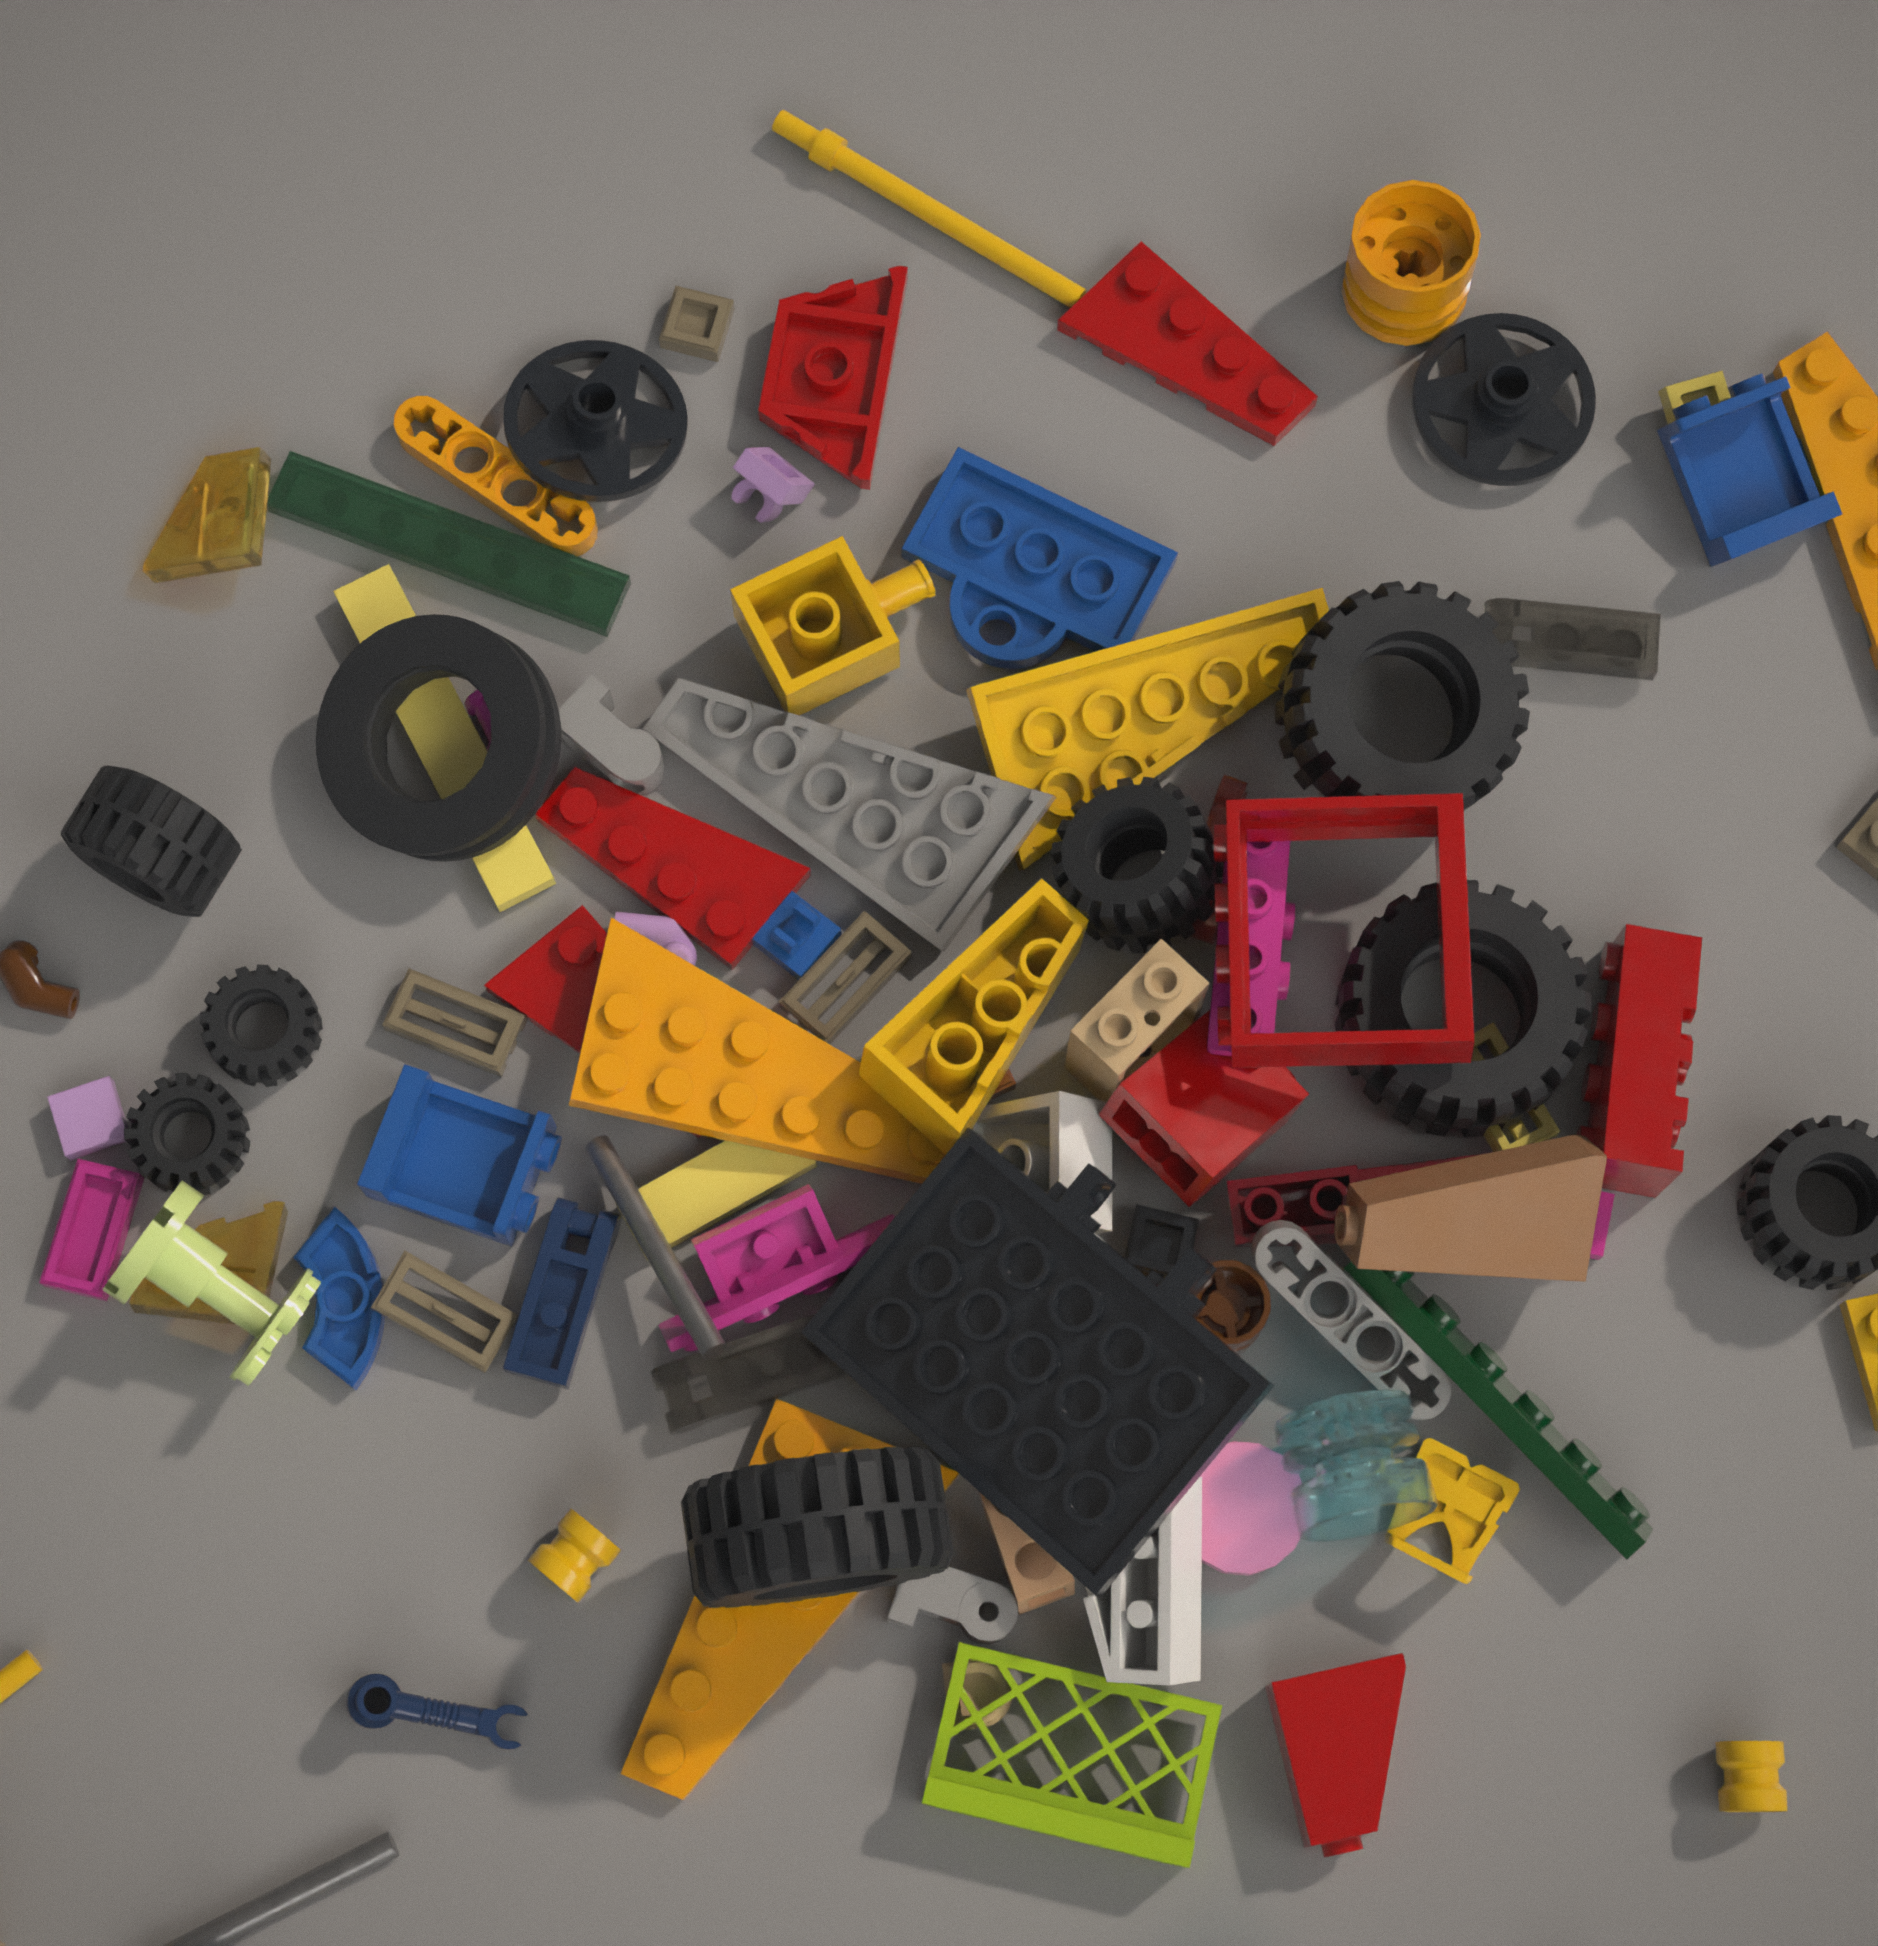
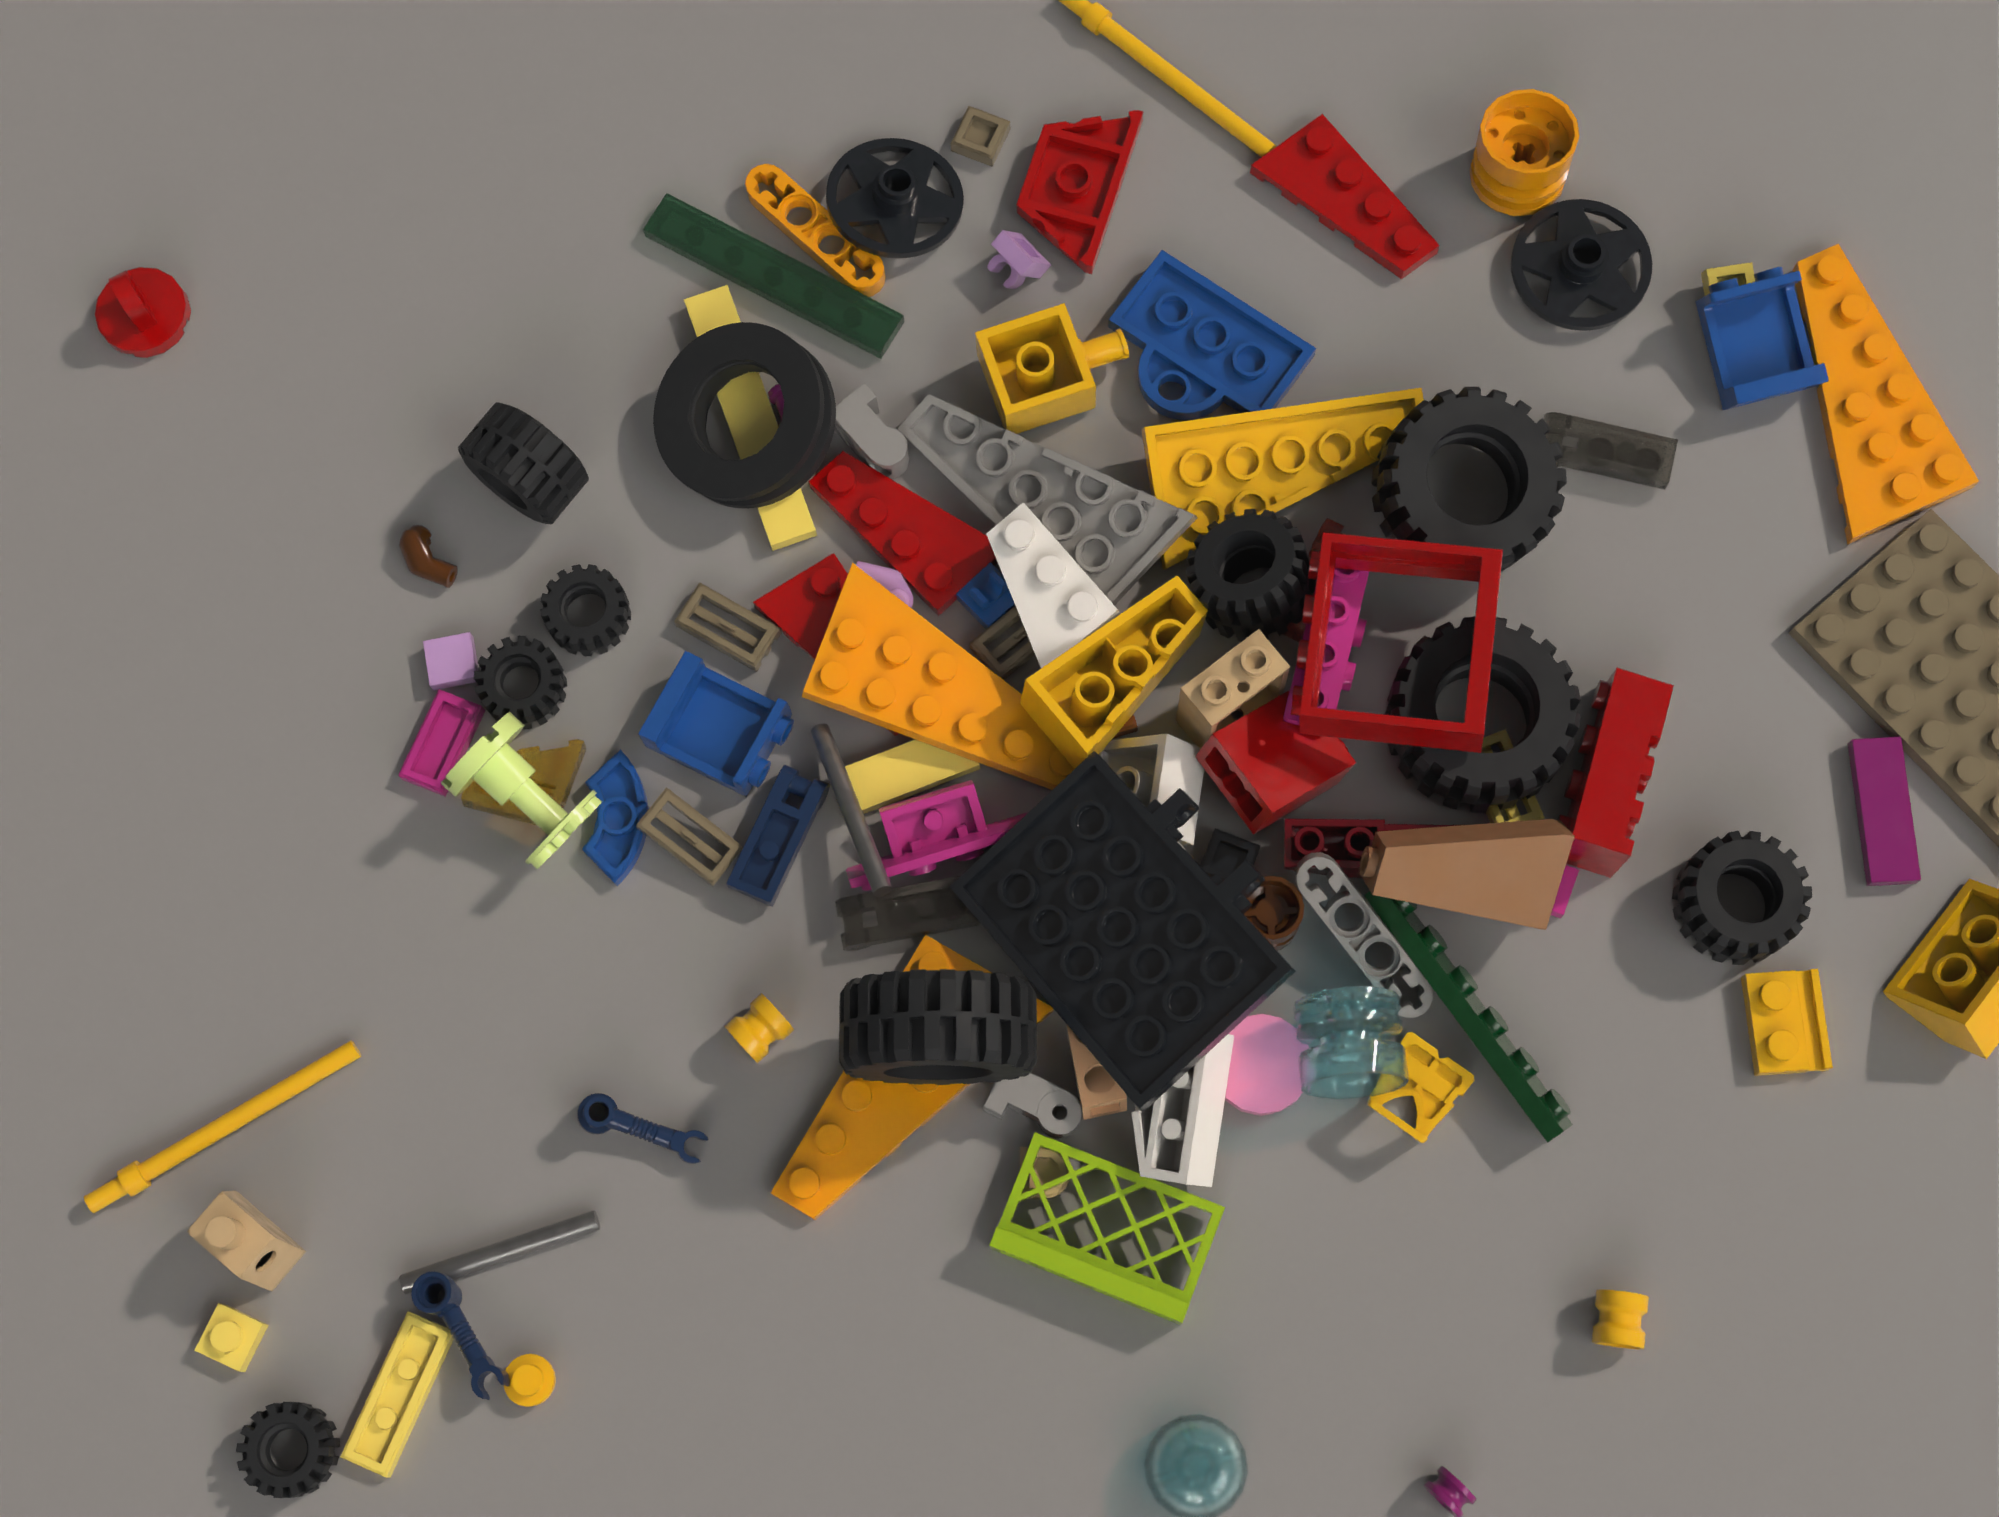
camera: 15 degrees right, 0 degrees up
(216, 520) = (605, 237): clear yellow wing -> none
(875, 916) = (1047, 586): none -> white wedge
(1338, 1747) = (1307, 1251): red slope -> none

